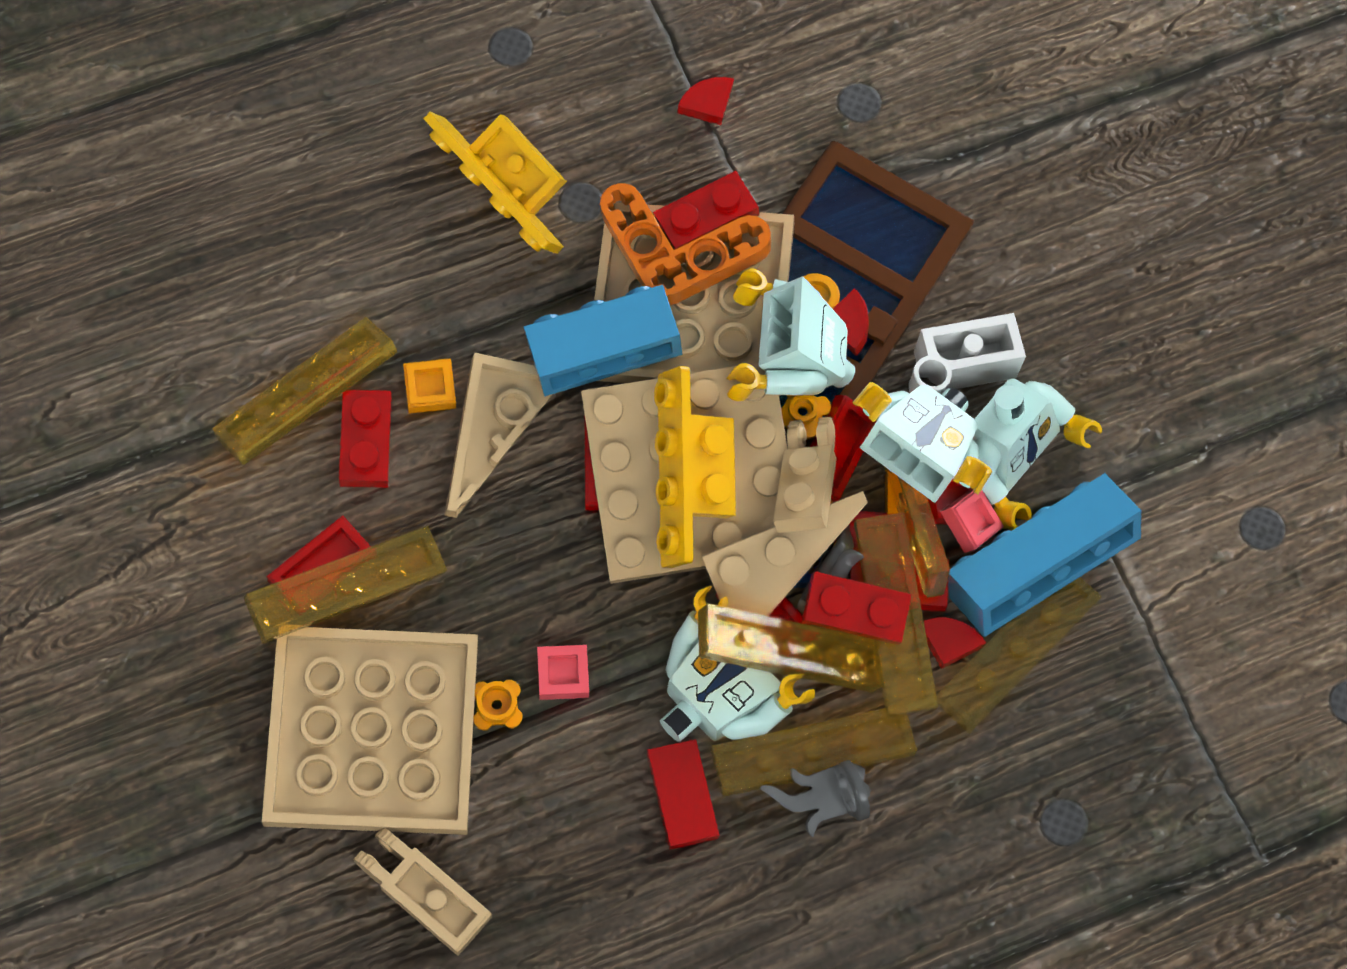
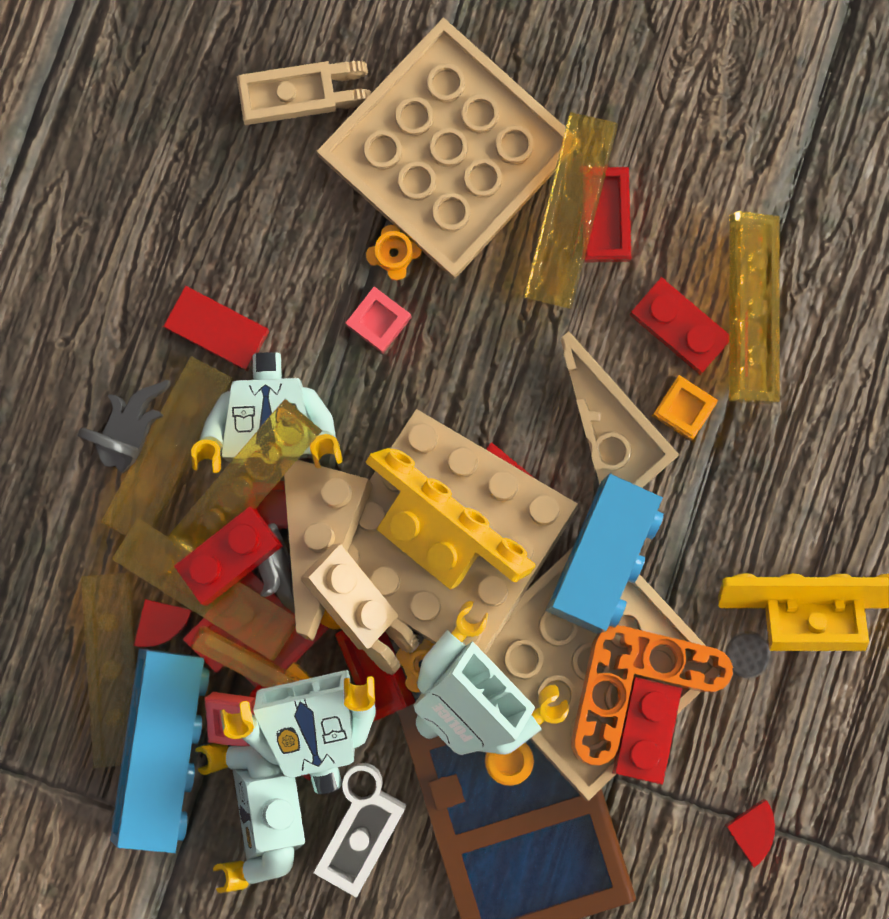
camera: 140 degrees right, 15 degrees up
(855, 315) = (465, 770): red tile -> none

